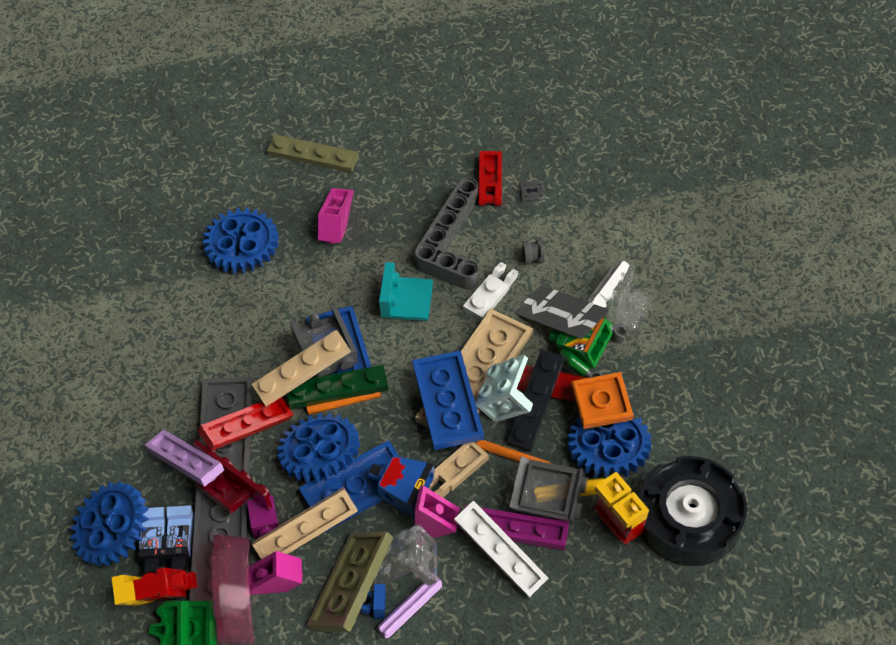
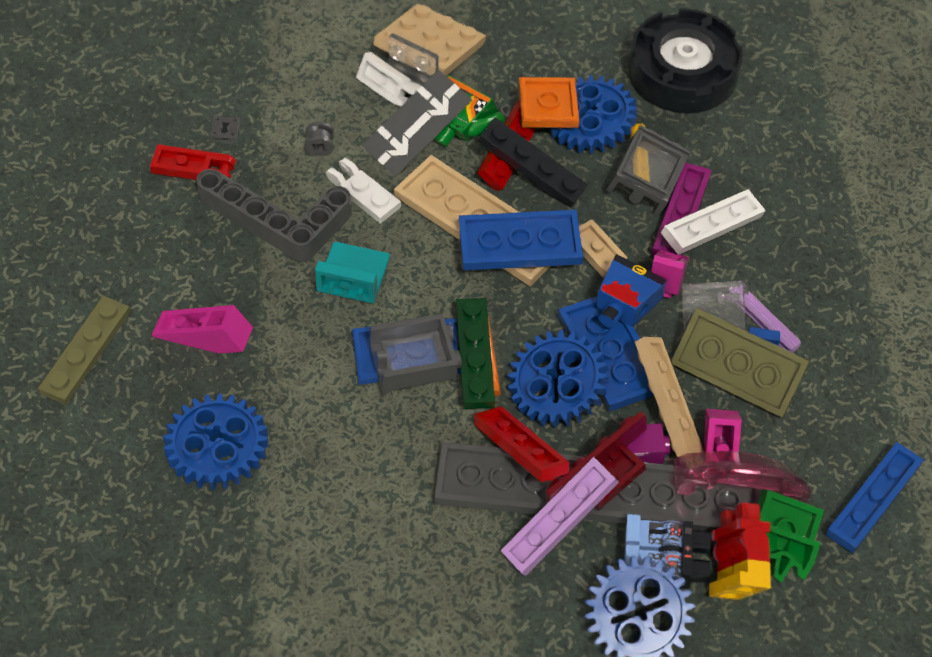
camera: 85 degrees left, 0 degrees up
(301, 368) = (459, 371): tan plate -> none
(499, 395) = (517, 180): light aqua bracket -> none
(505, 452) = (593, 195): orange bar -> none
(619, 508) = (692, 106): yellow hips -> none
(661, 309) = (436, 33): none -> tan plate

